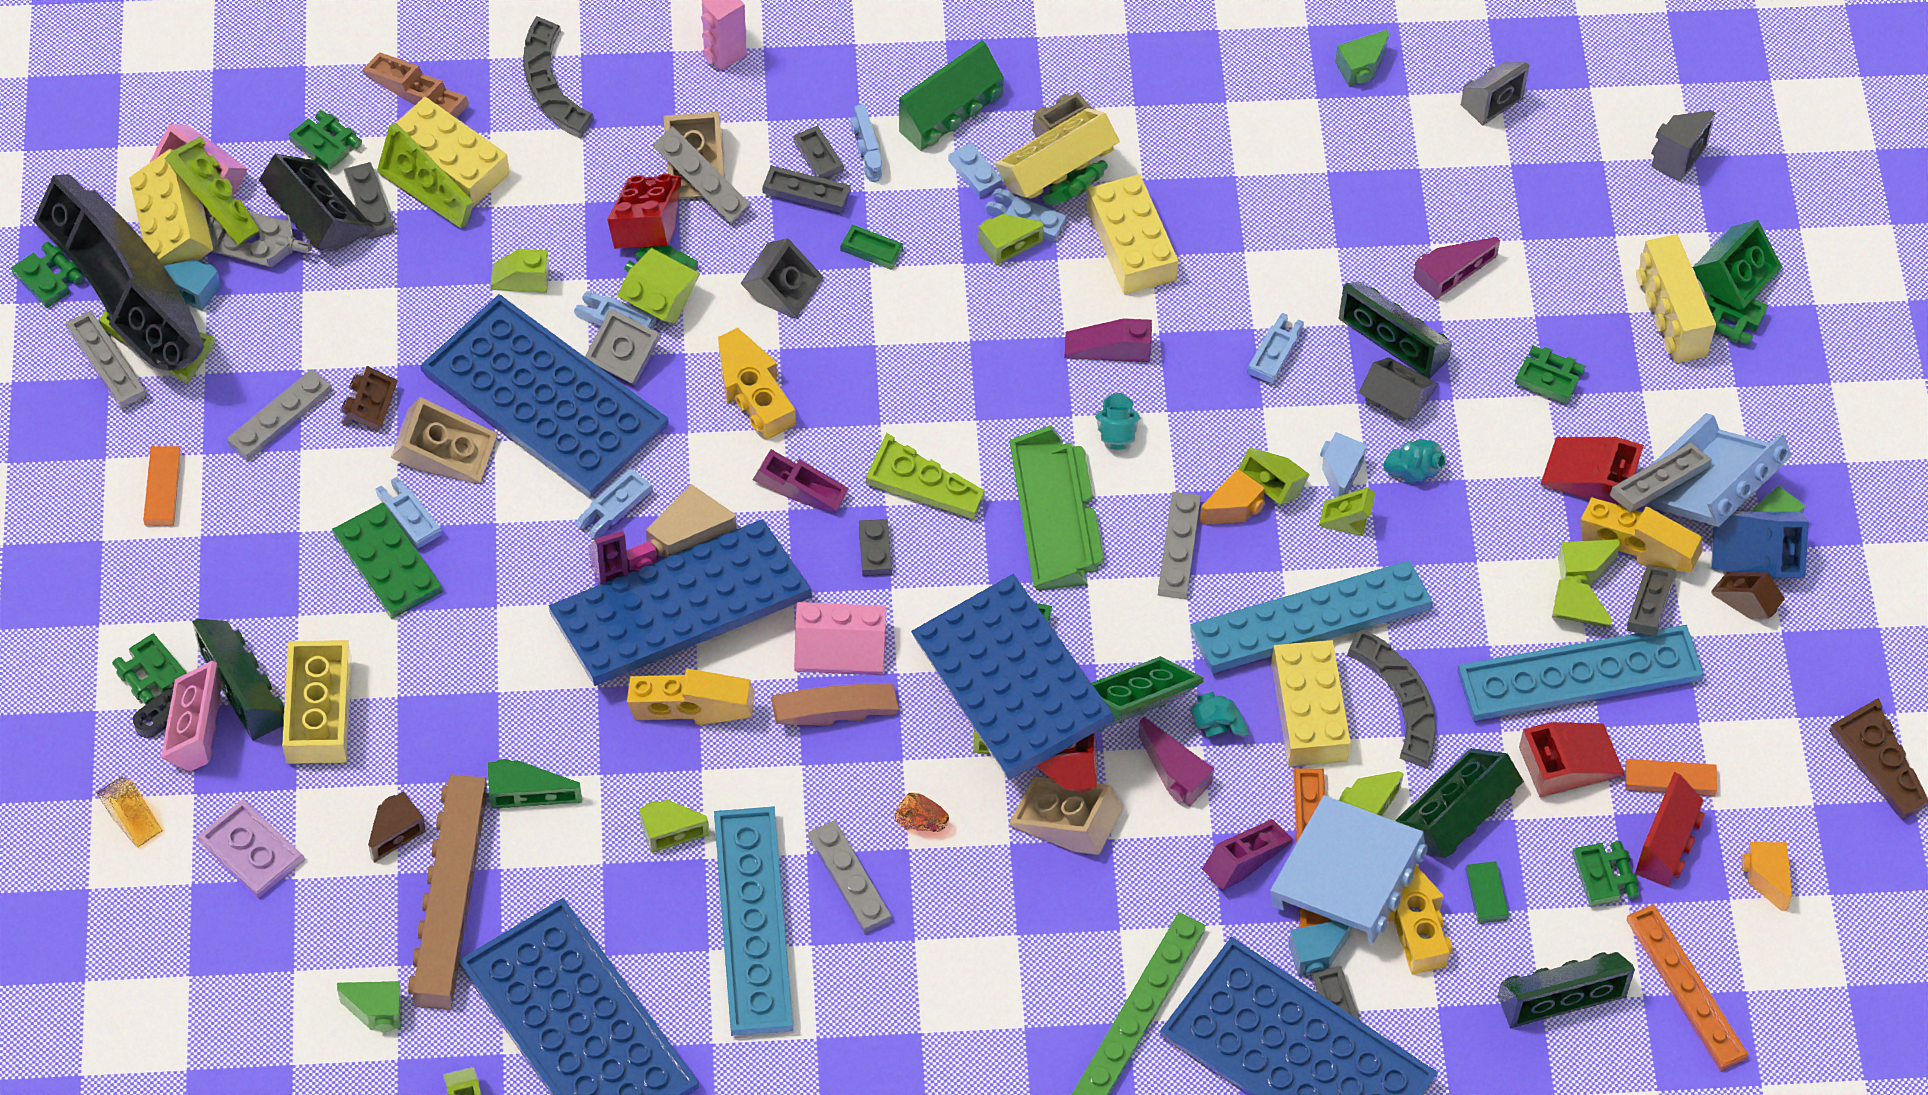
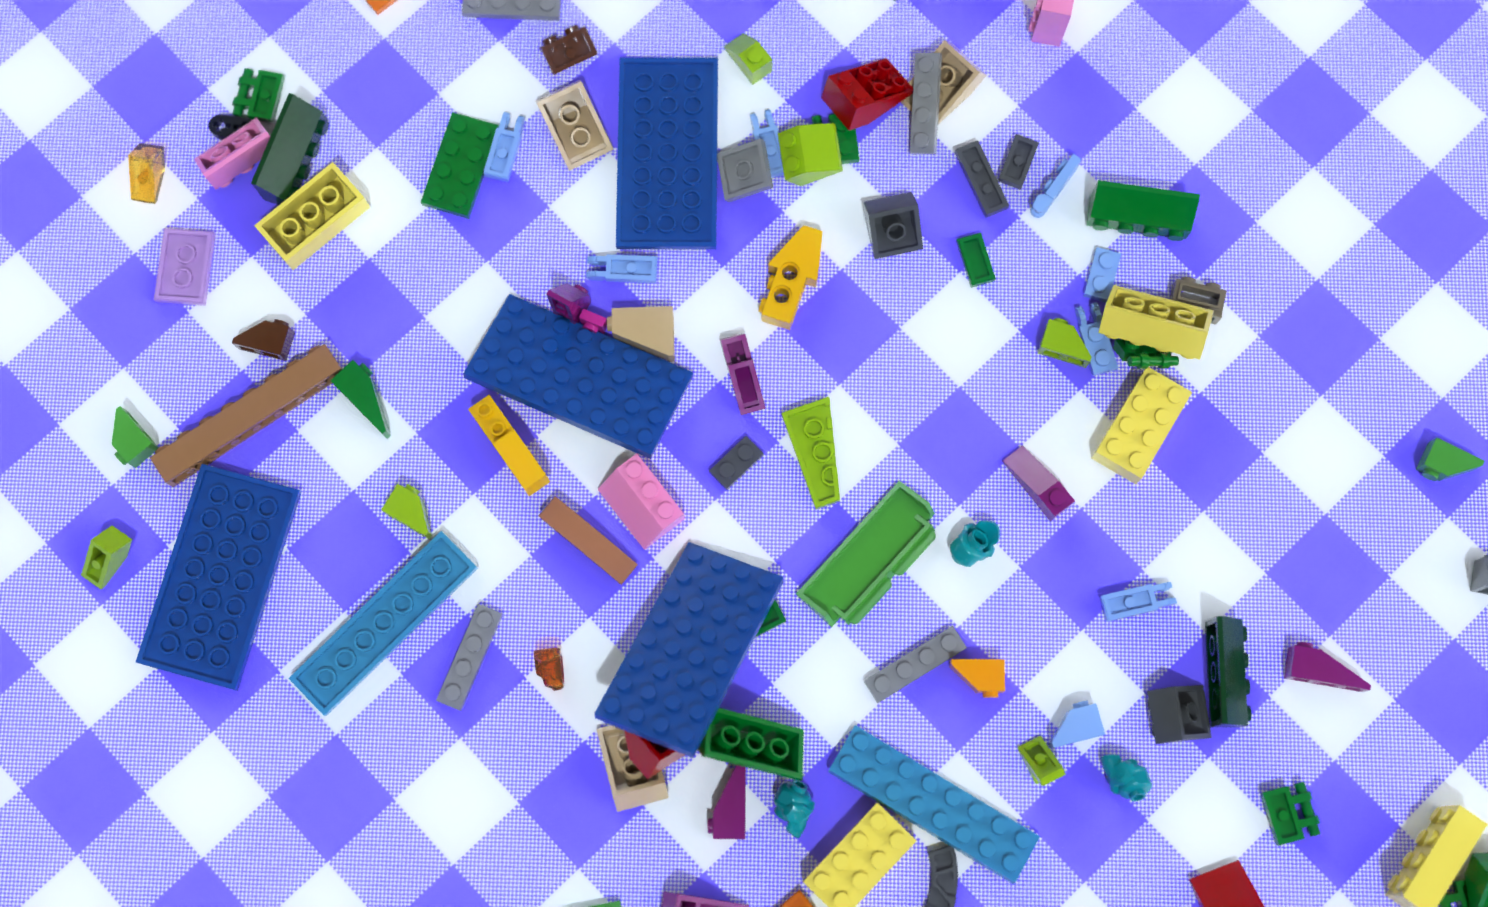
camera: 55 degrees right, 20 degrees up
(1276, 473) = (1023, 687): lime slope -> none

